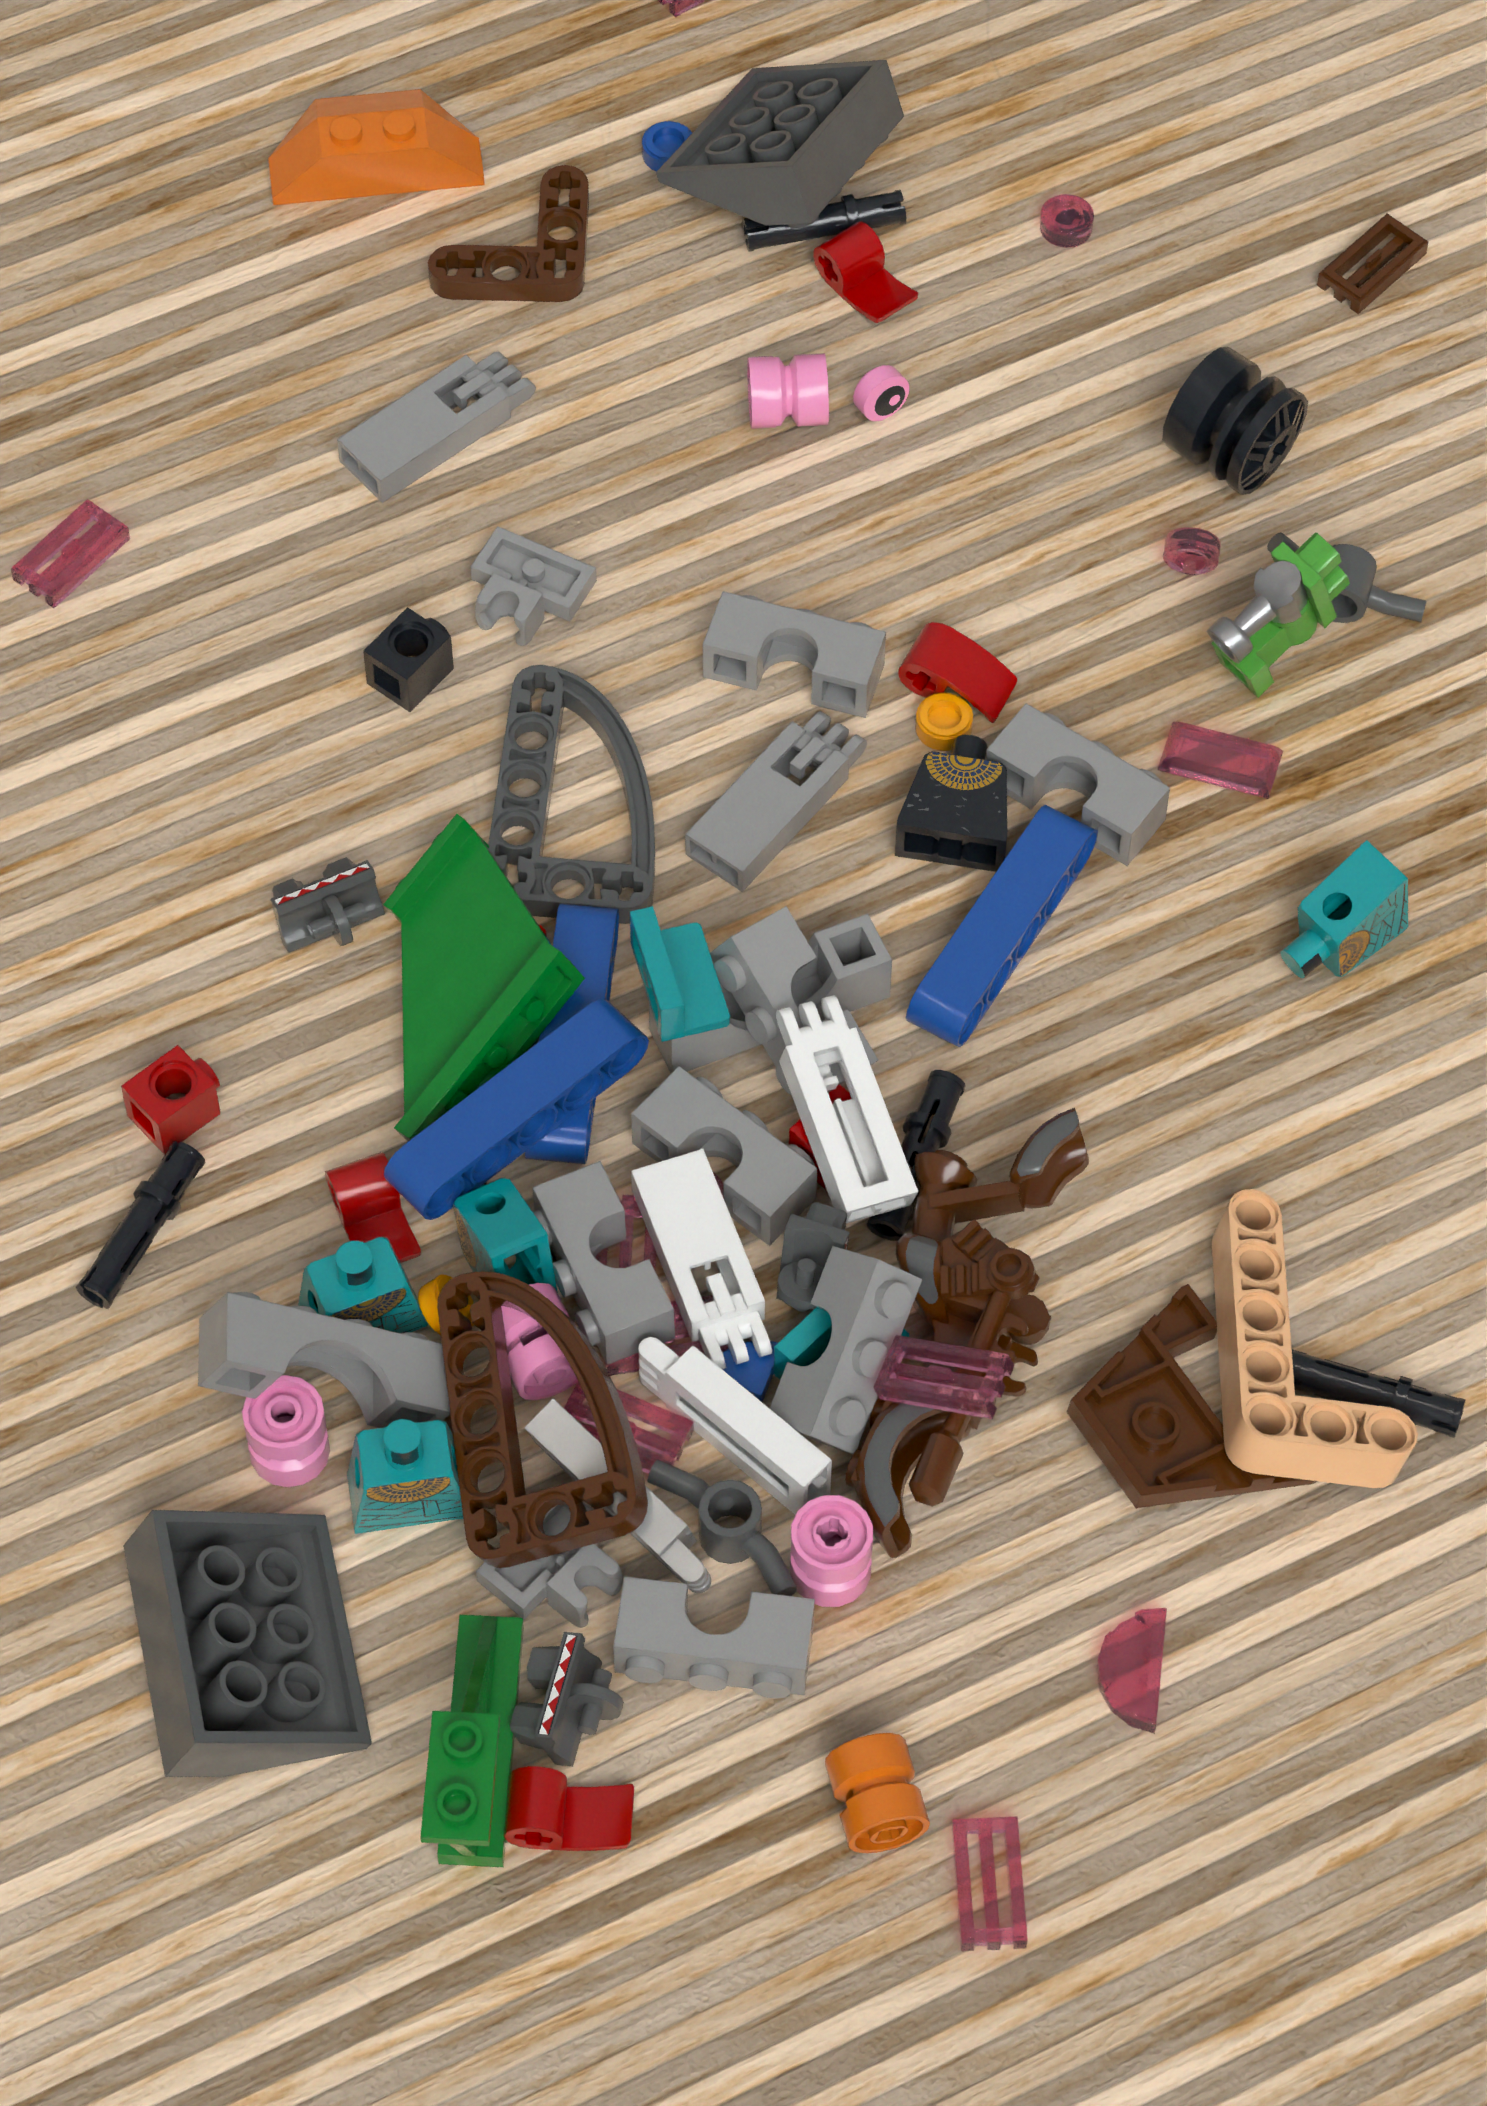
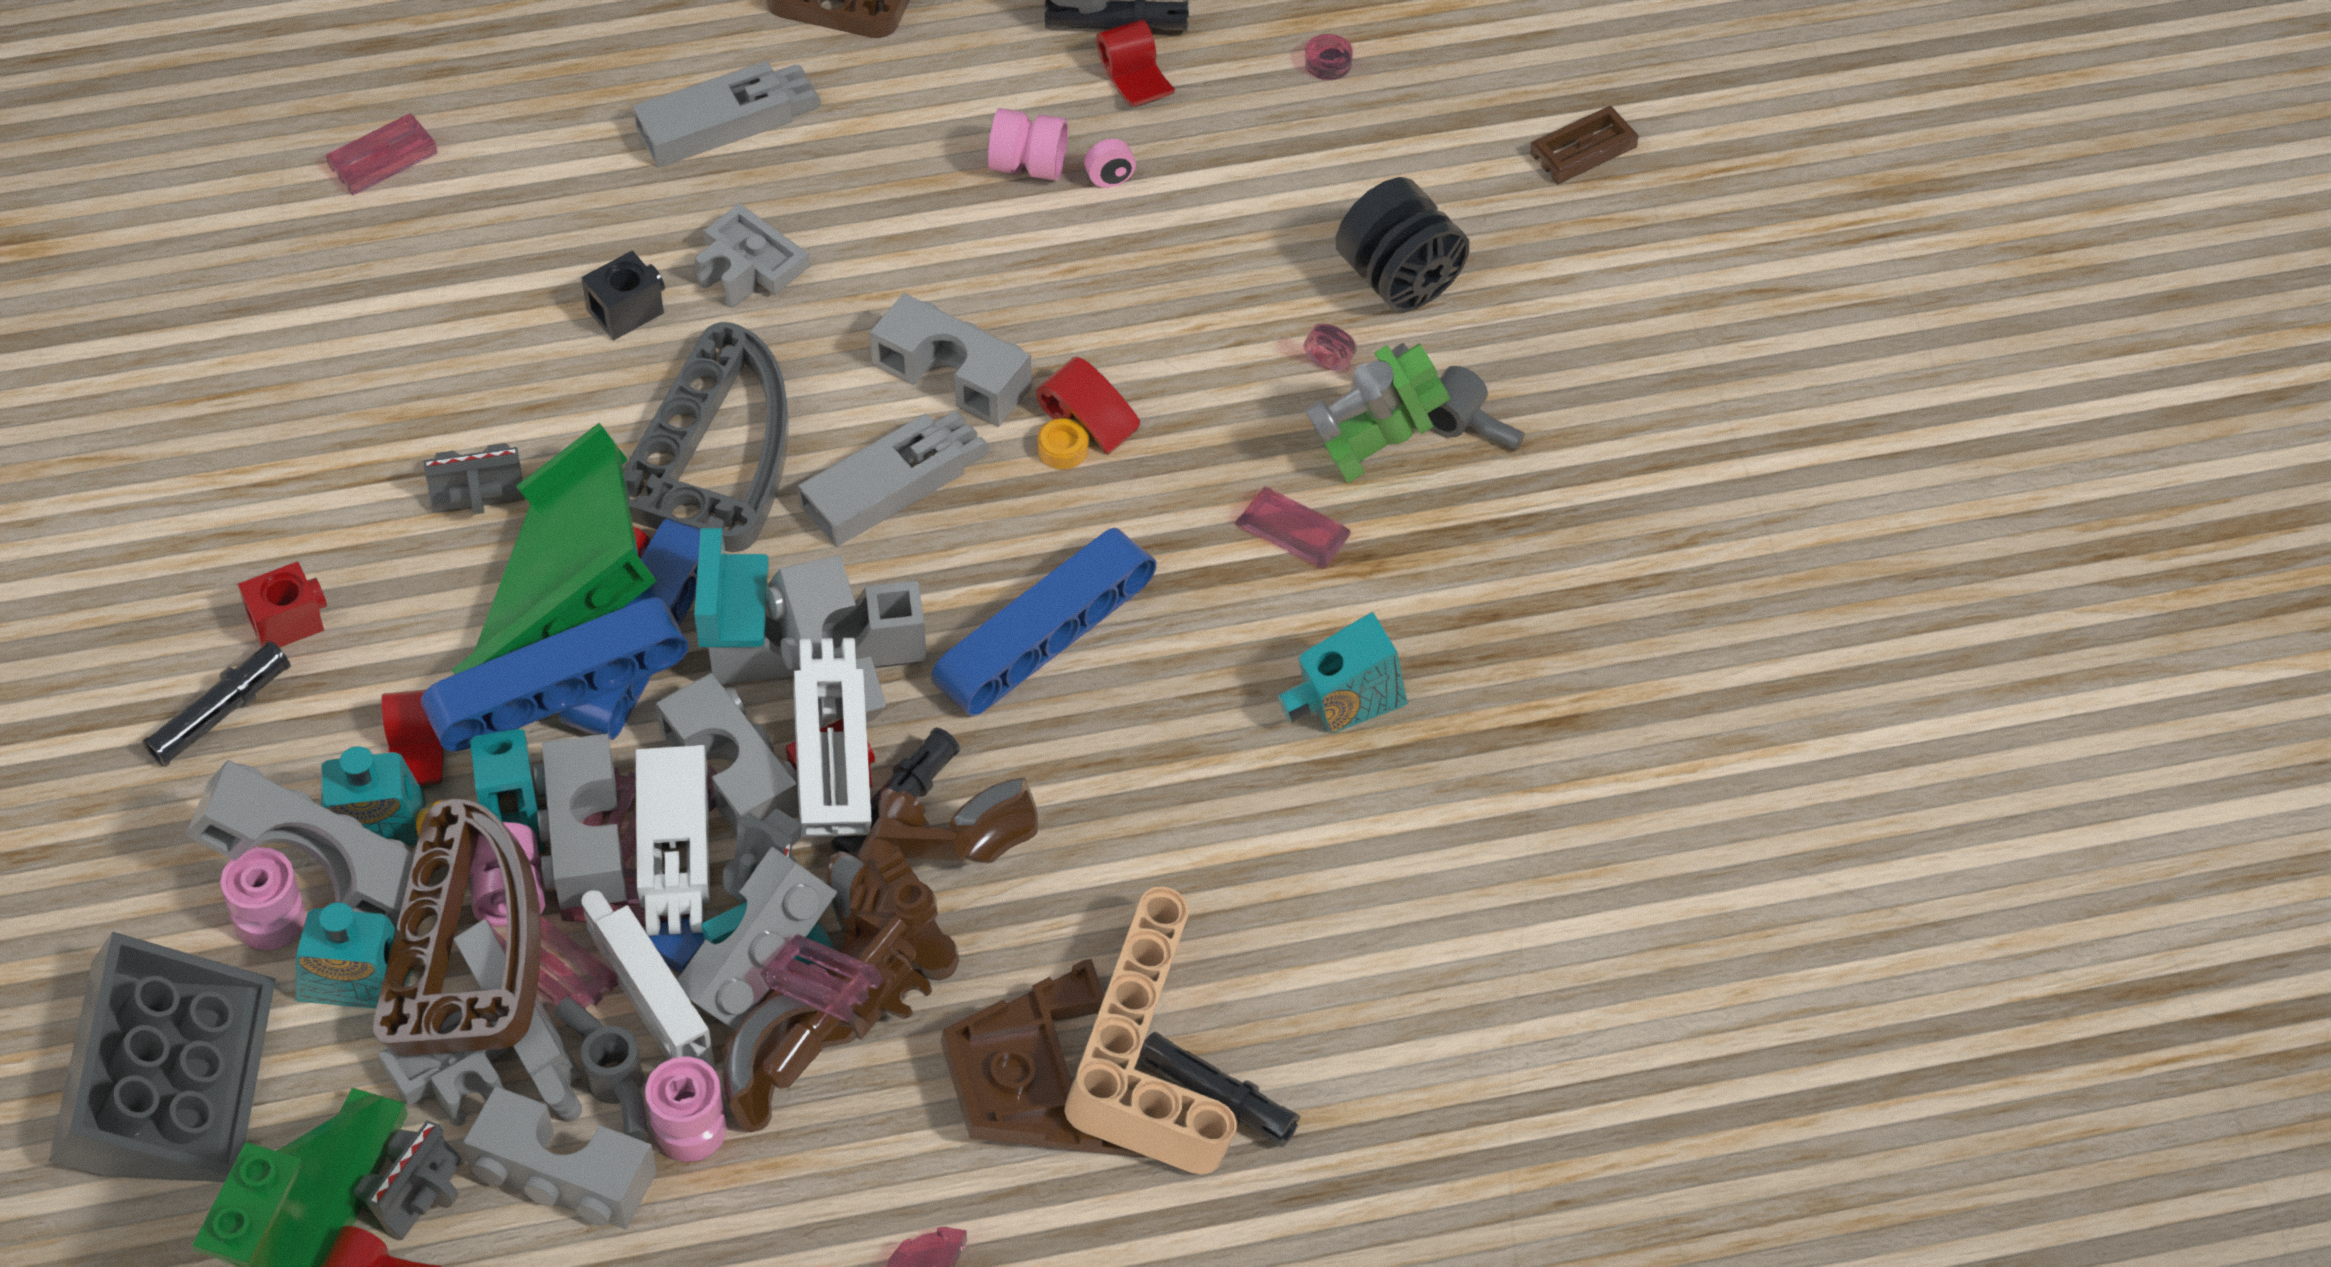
camera: 15 degrees right, 5 degrees down
(956, 809) = (1039, 514): black torso -> none
(1046, 756) = (1132, 488): light grey arch -> none

